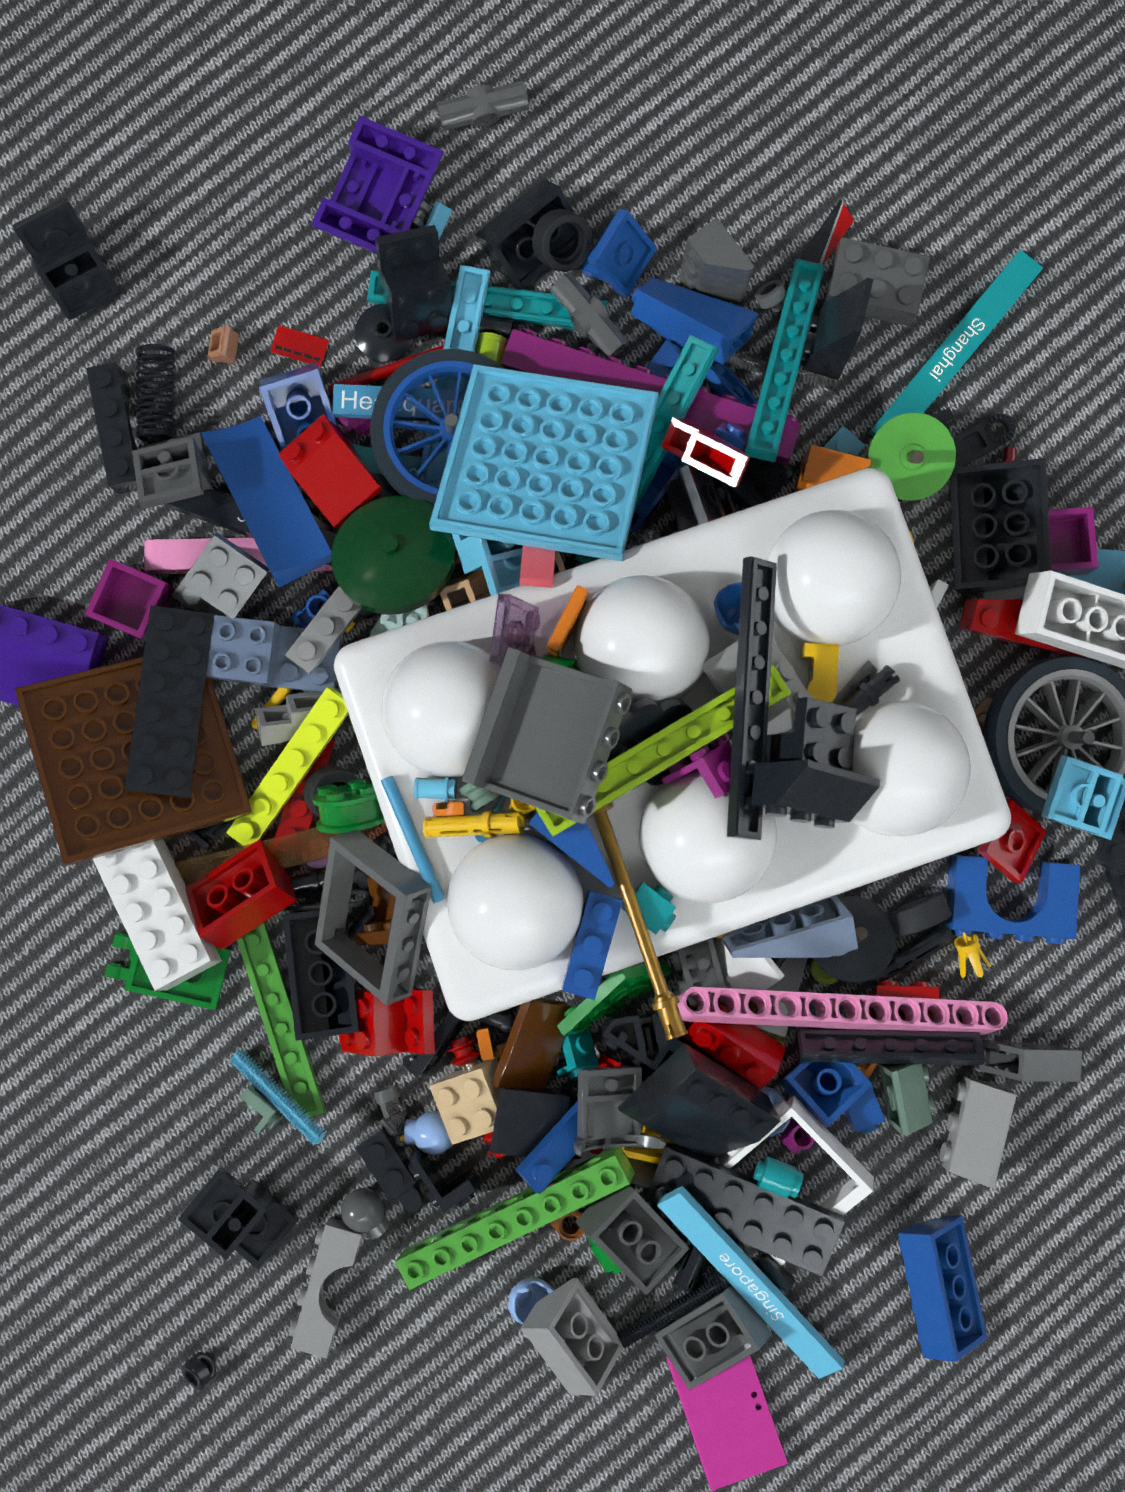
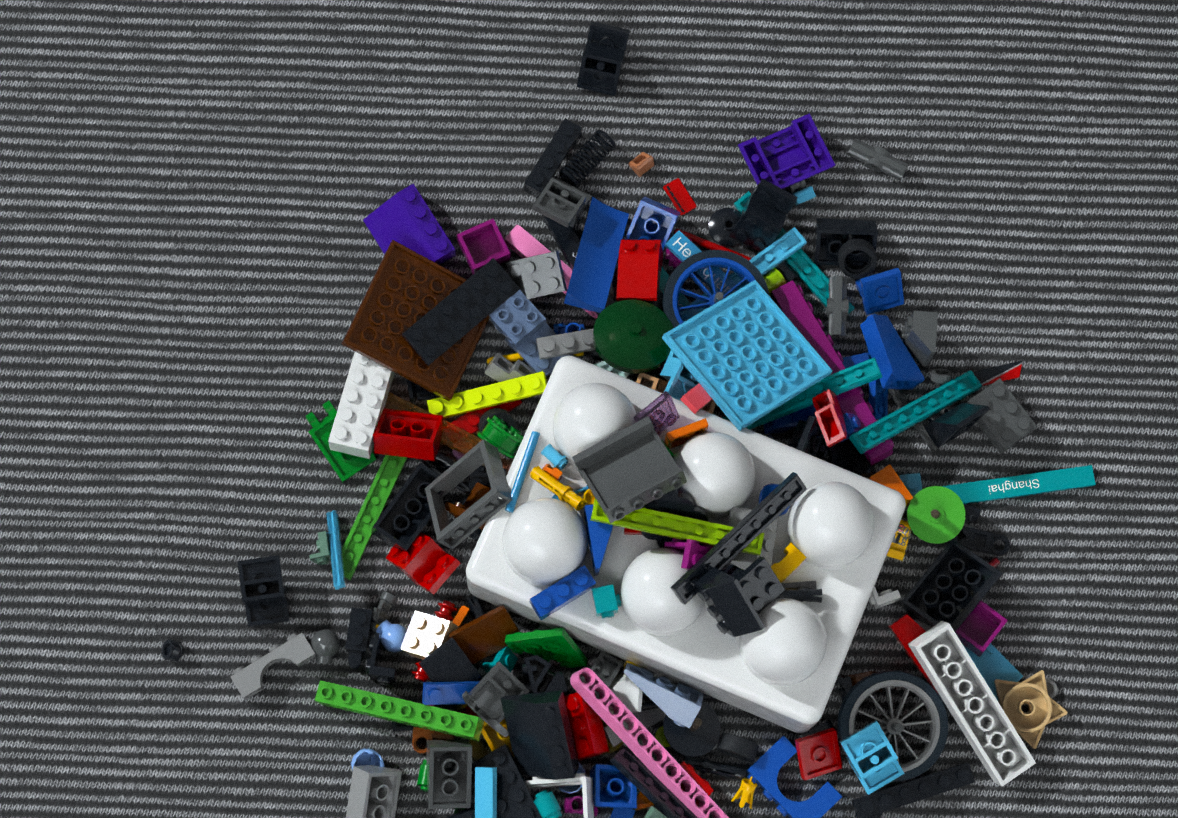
camera: 40 degrees right, 10 degrees down
(445, 1033) = (448, 593): black hinge -> none
(478, 796) = (572, 477): sand green wheel -> none
(664, 1000) = (573, 645): pearl gold bar -> none

